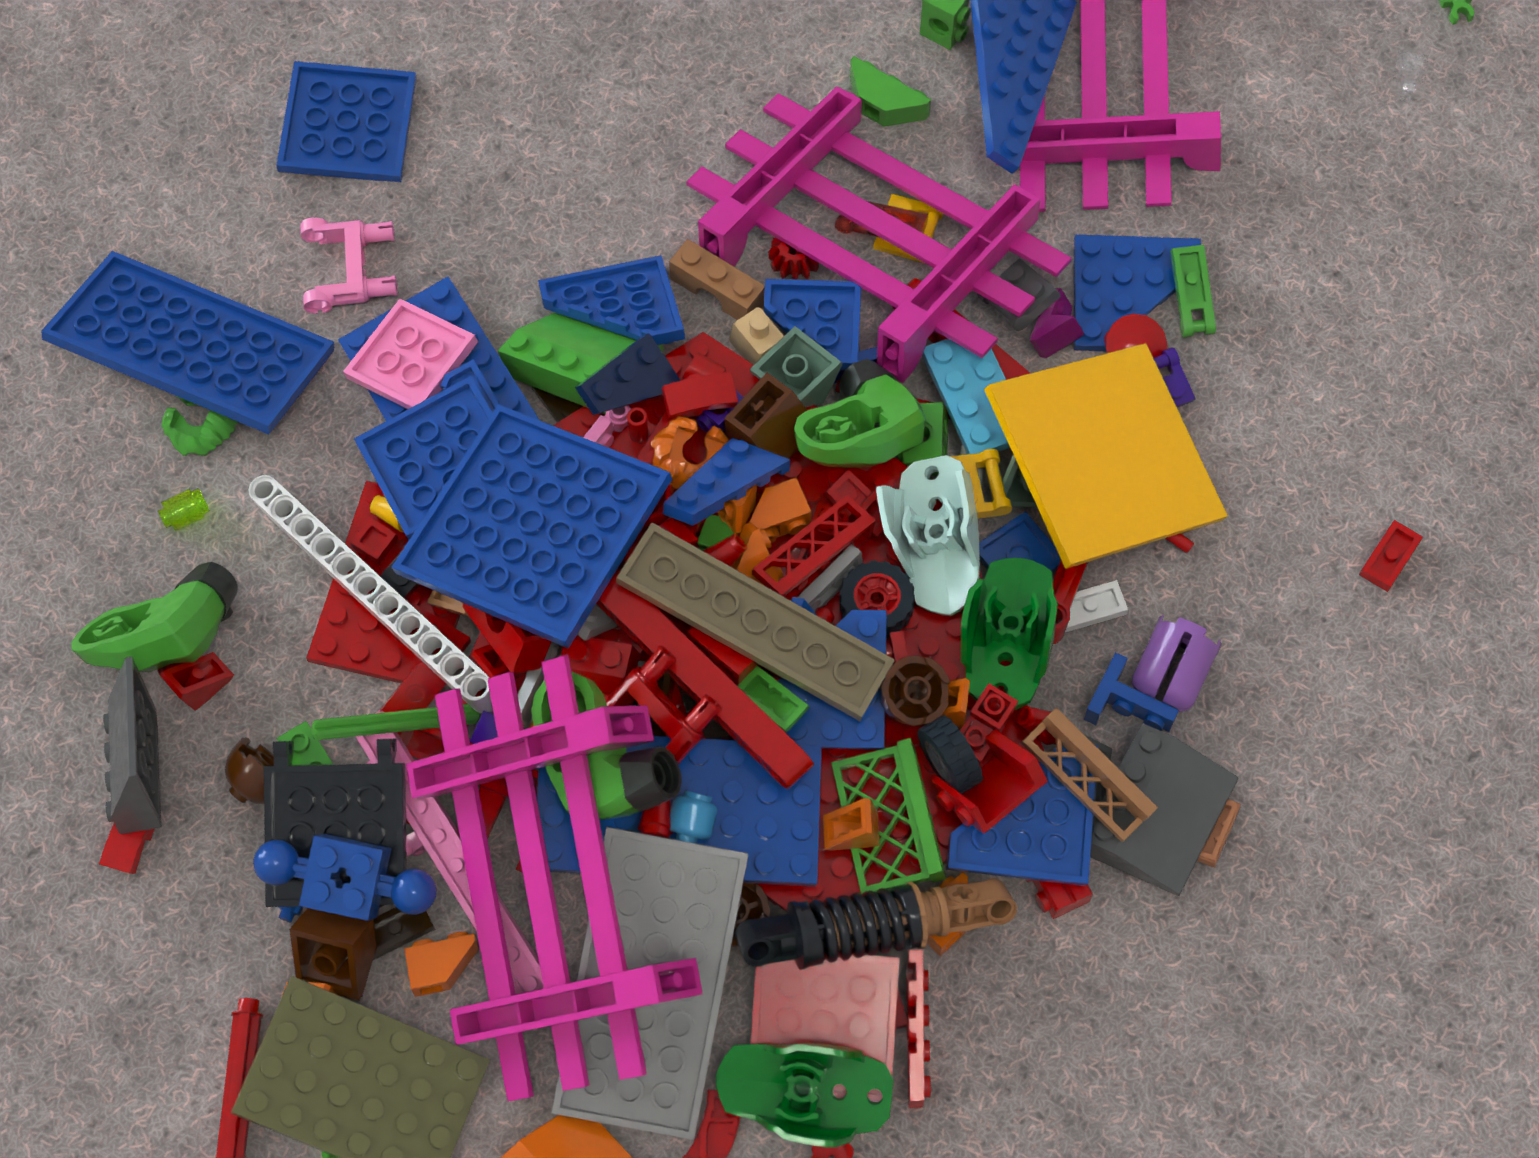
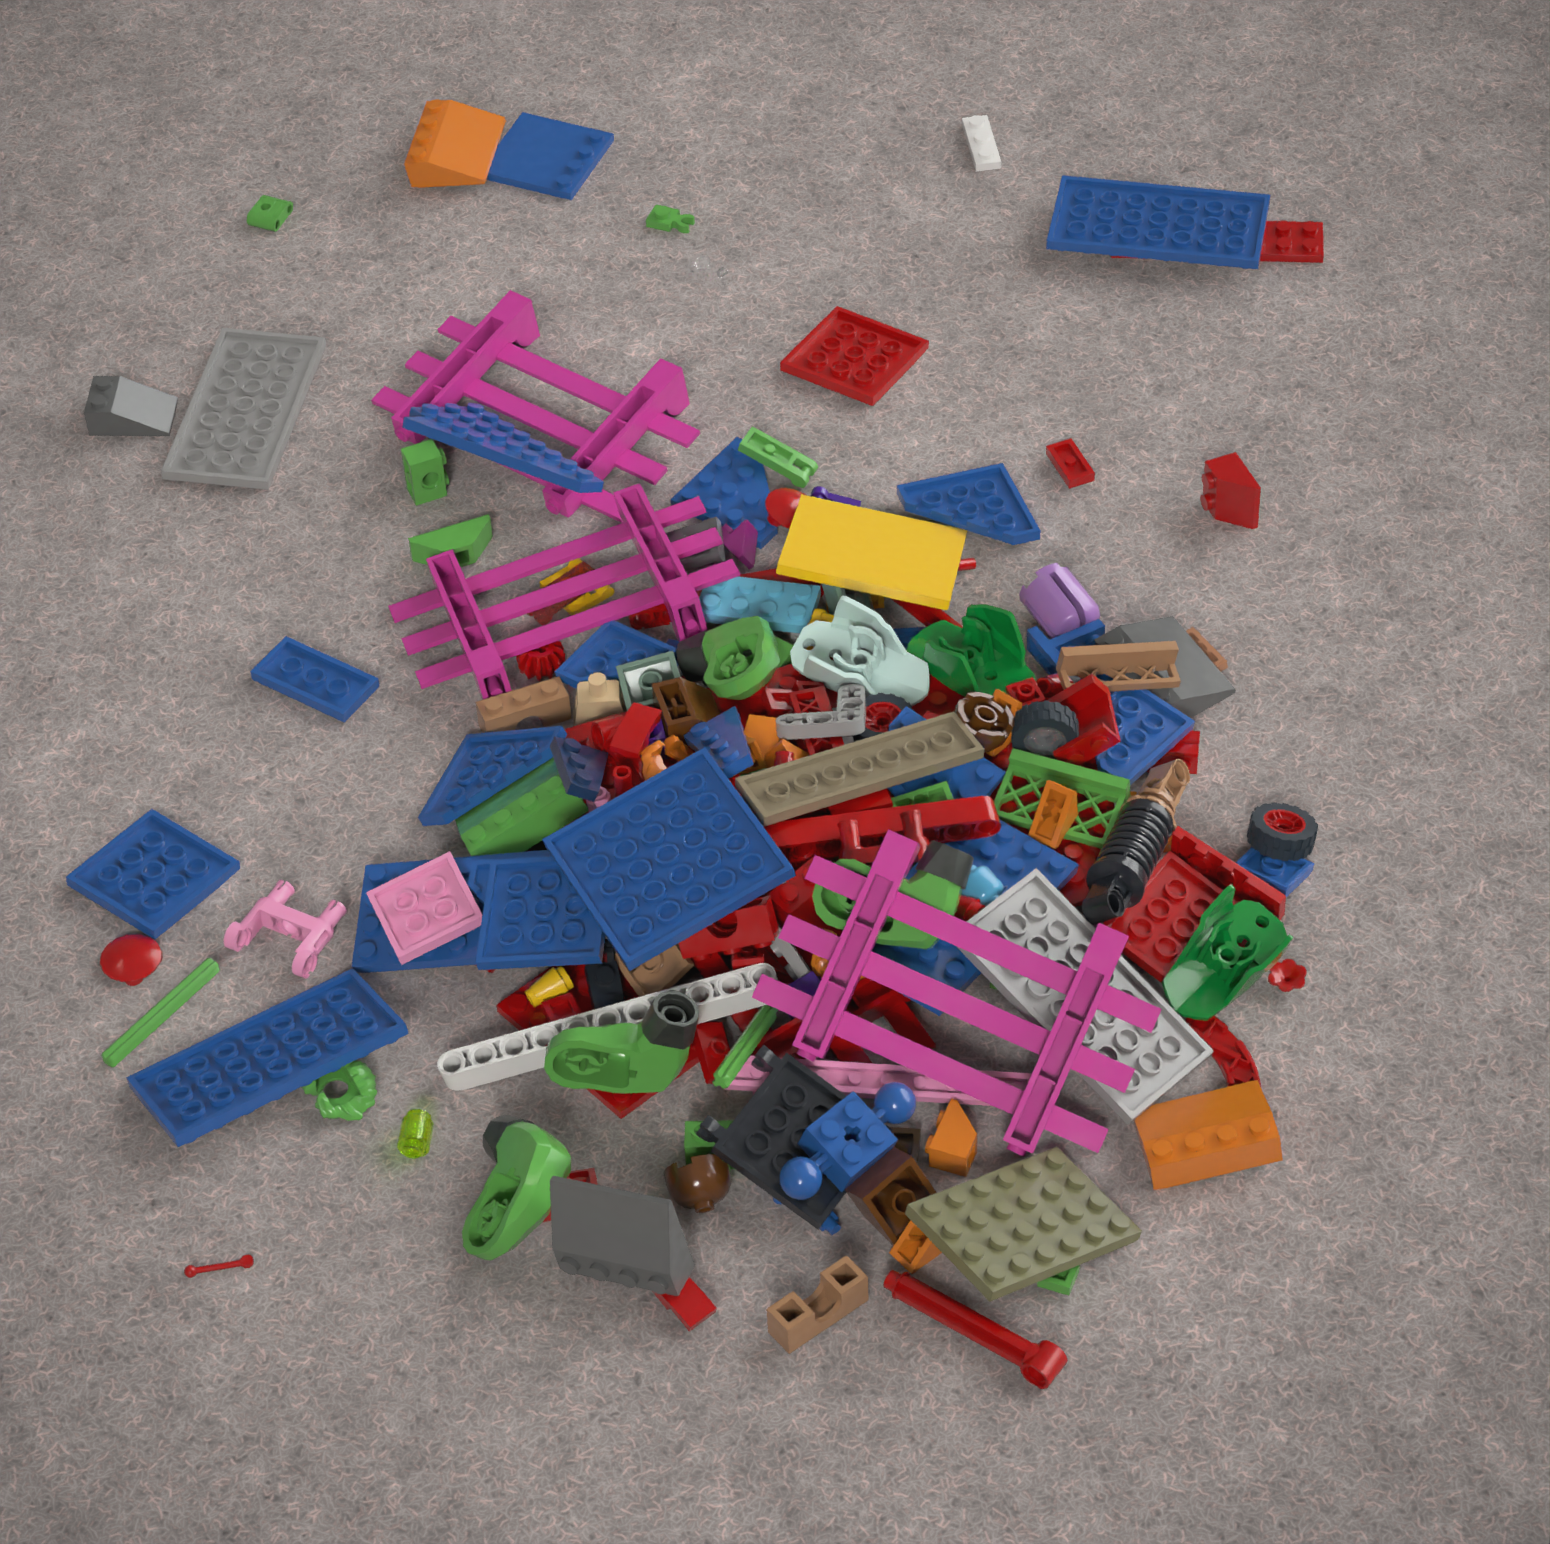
camera: 55 degrees left, 20 degrees down
(160, 954) = (840, 1292): none -> medium nougat arch
(202, 228) = (160, 1012): none -> bright green axle
(246, 167) = (130, 958): none -> red dish
(336, 620) = (626, 1054): none -> bright green piece
(646, 95) = (315, 679): none -> blue plate
(818, 560) = (846, 721): none -> light grey beam
(965, 1064) = (1280, 874): none -> blue plate
(1035, 1048) = (1282, 831): none -> black wheel
(1266, 501) = (974, 500): none -> blue plate
(1393, 272) = (854, 355): none -> red plate
(1450, 730) = (1230, 491): none -> red slope

